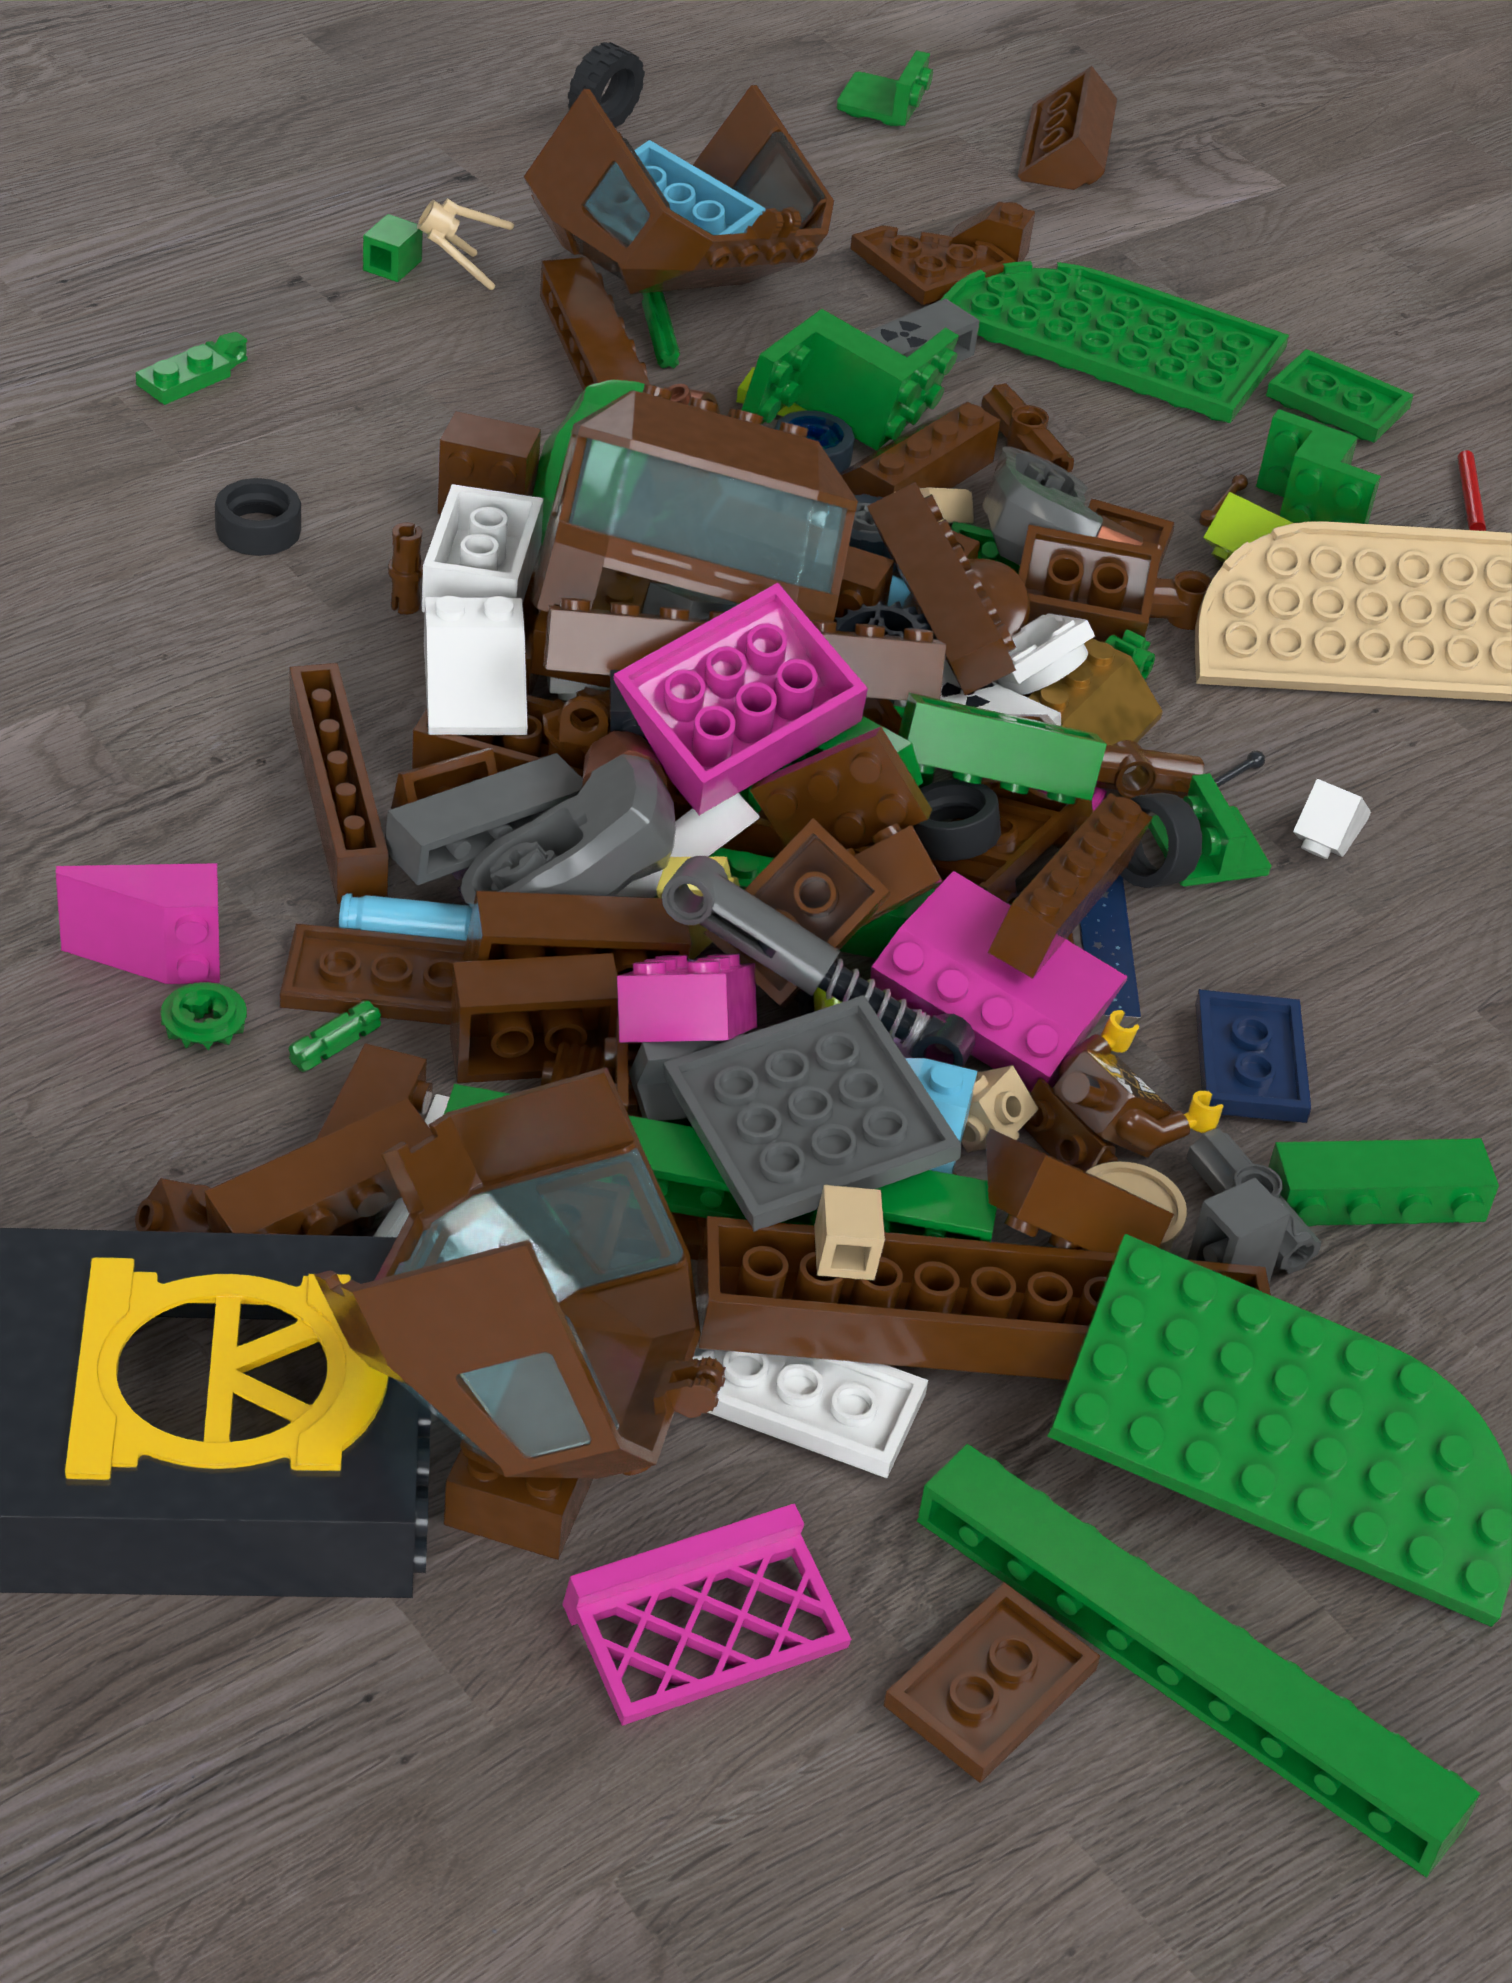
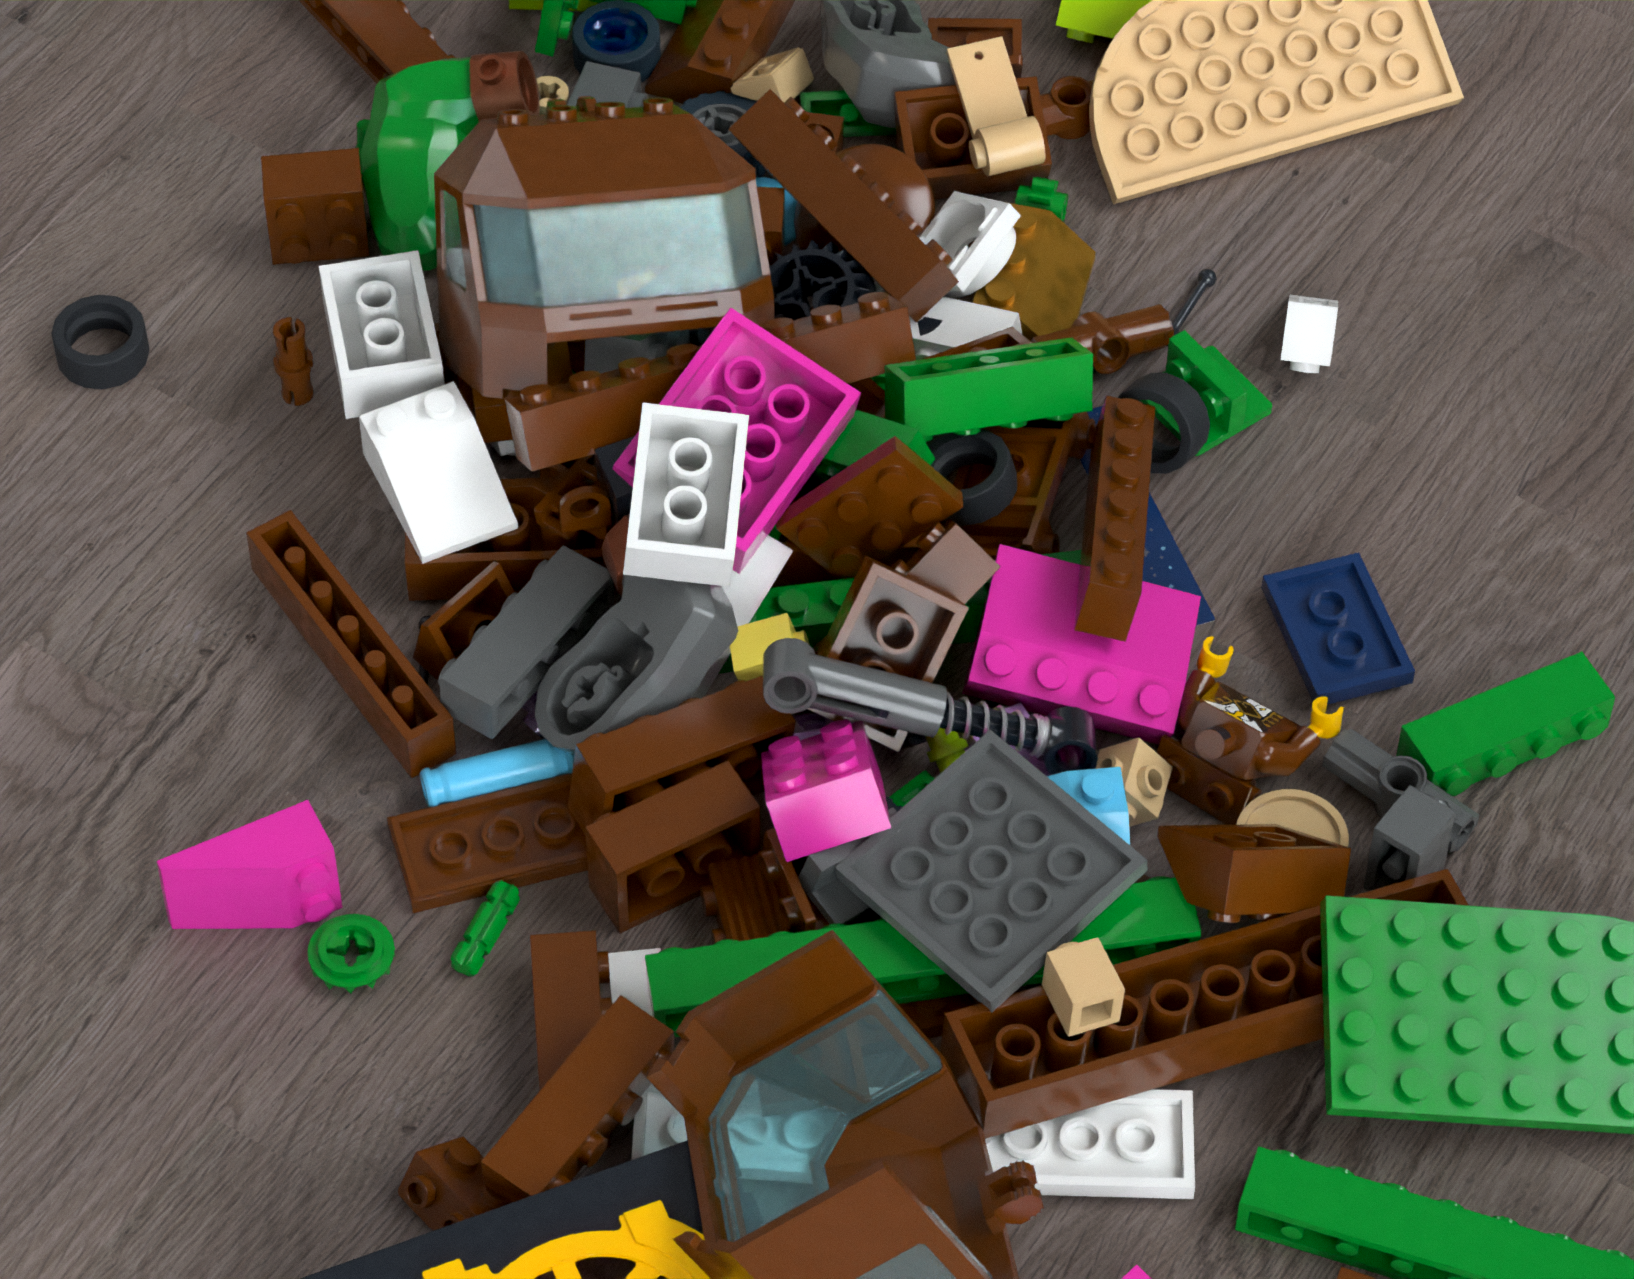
camera: 15 degrees left, 10 degrees up
(663, 707) = (686, 494): none -> white brick
(1112, 561) = (994, 109): none -> tan door

